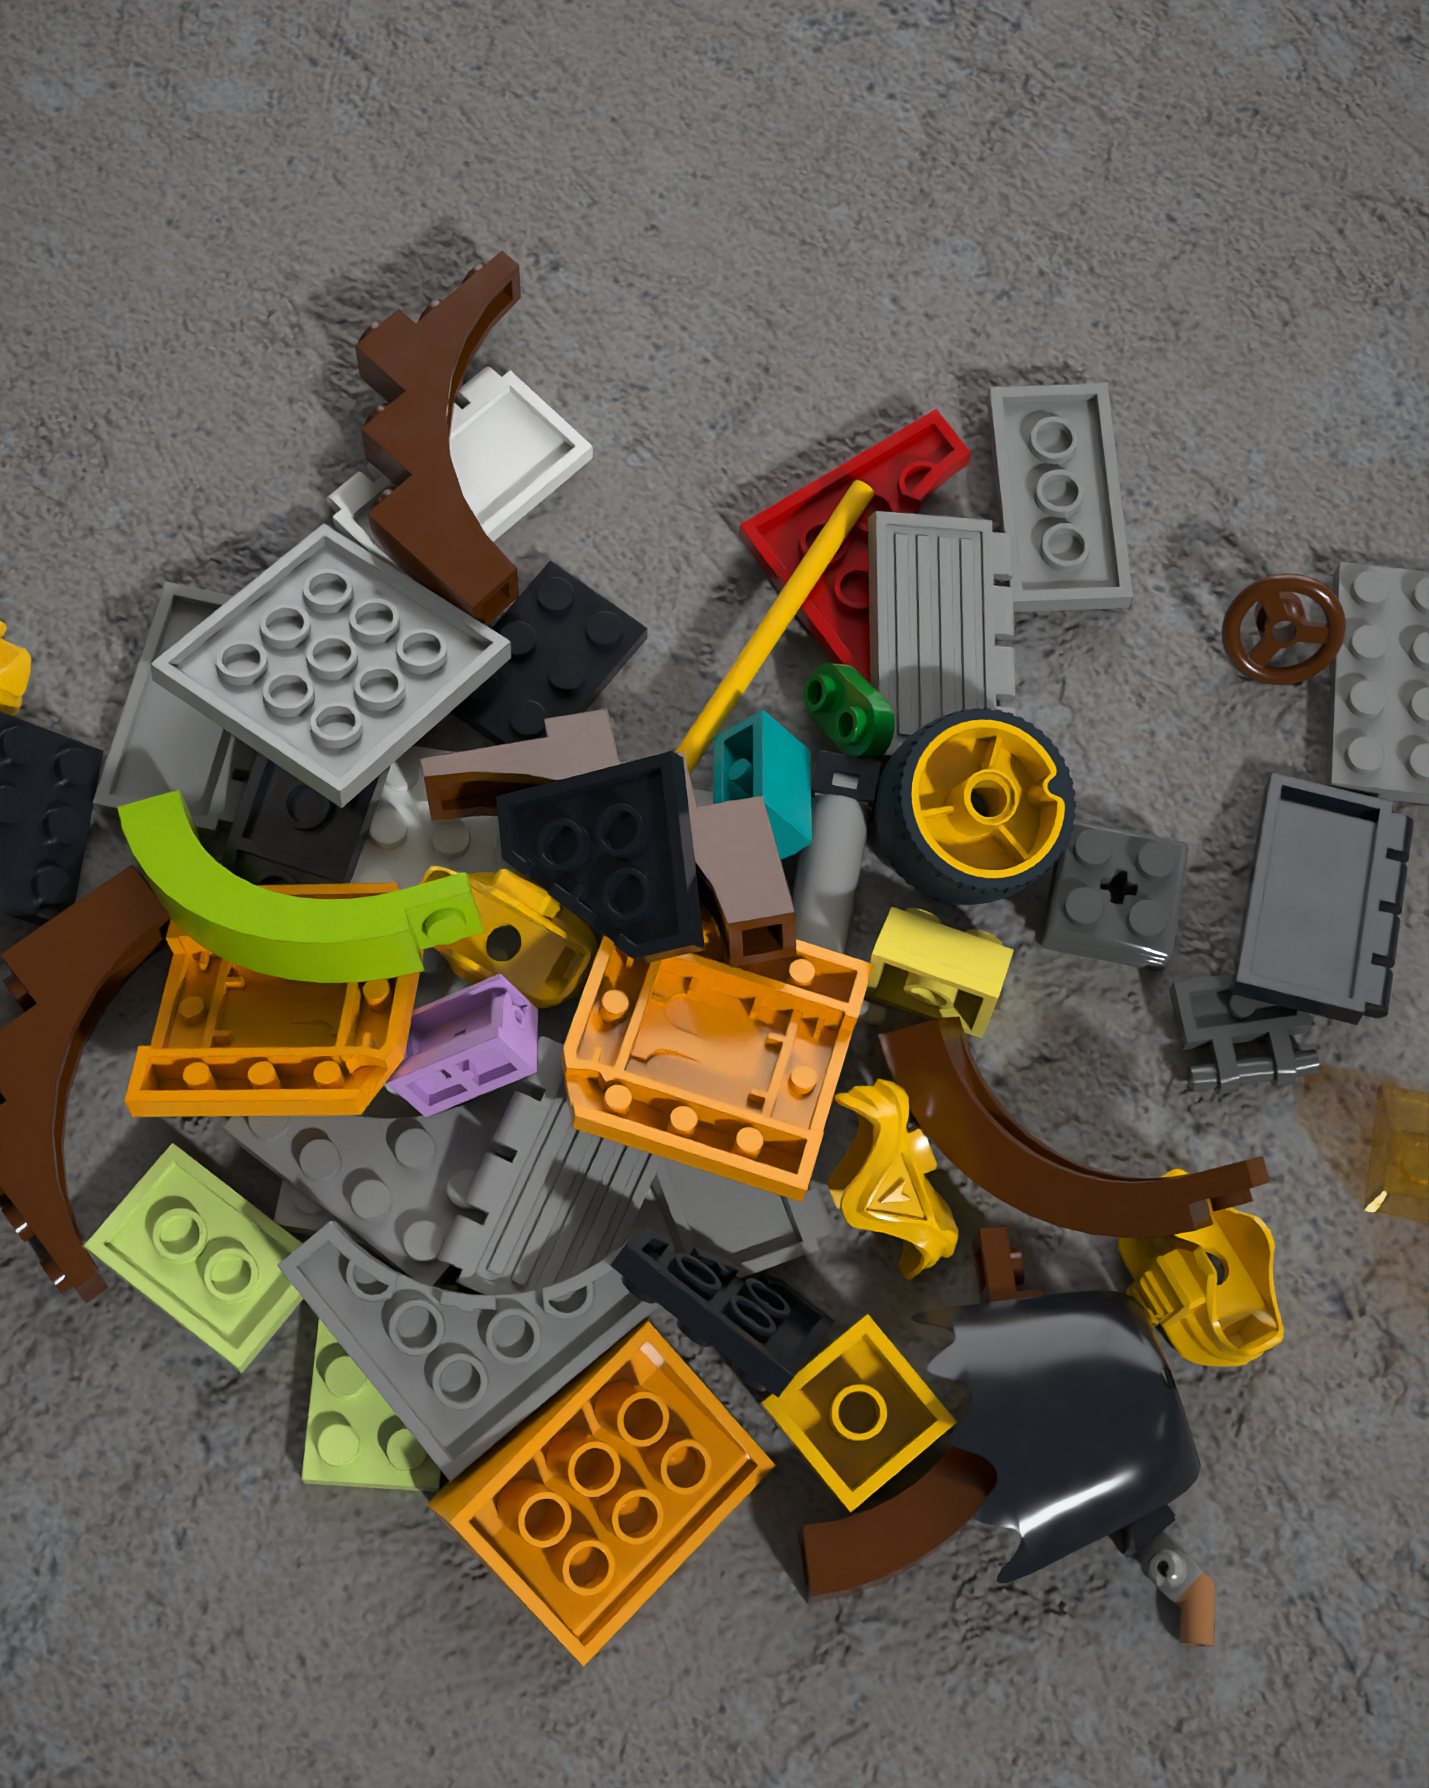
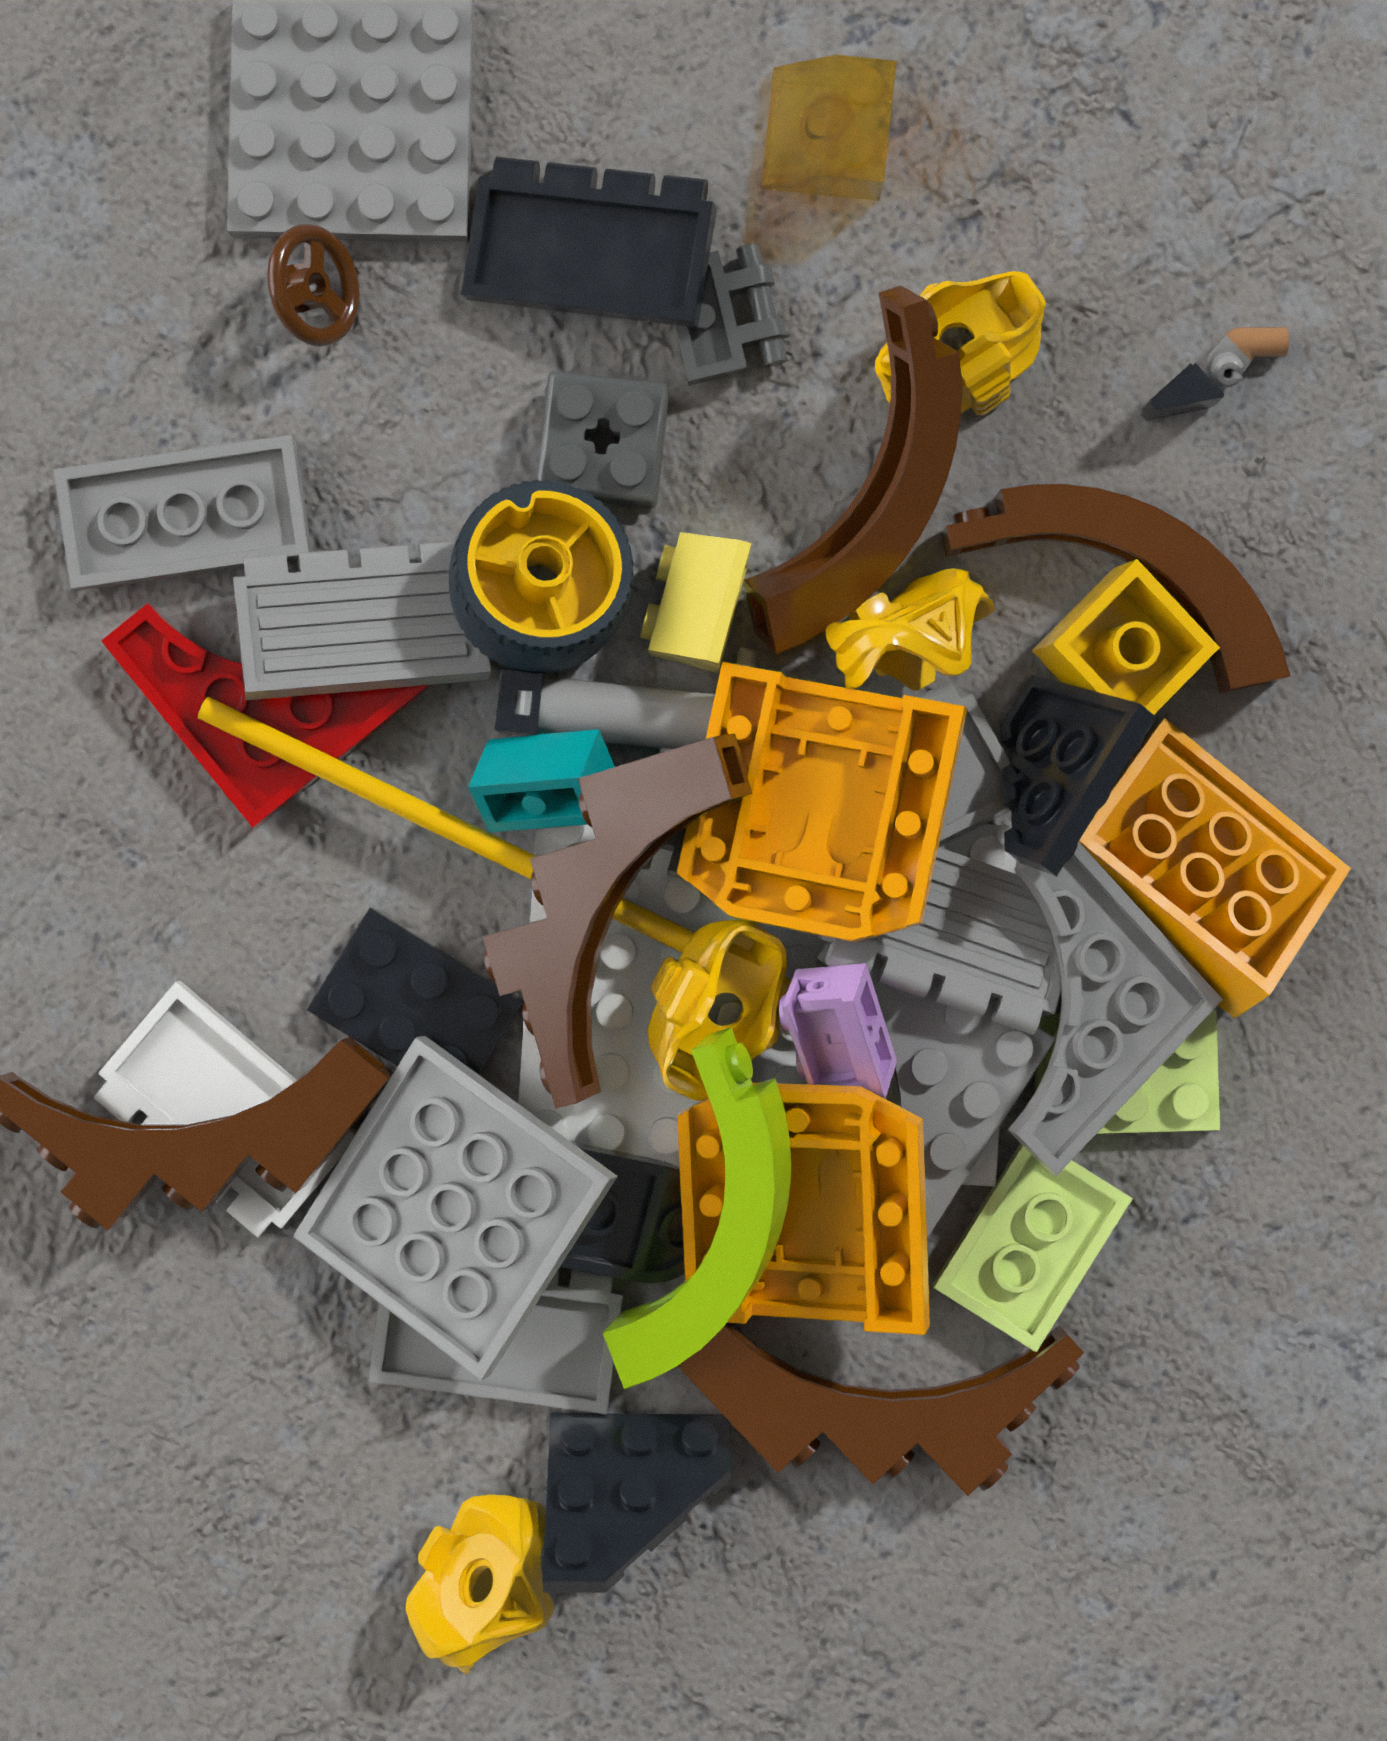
camera: 90 degrees left, 20 degrees up
(613, 852) = (655, 913): black plate -> none
(849, 710) = (445, 704): green plate -> none
(1066, 1416) = (1113, 464): black piece -> none

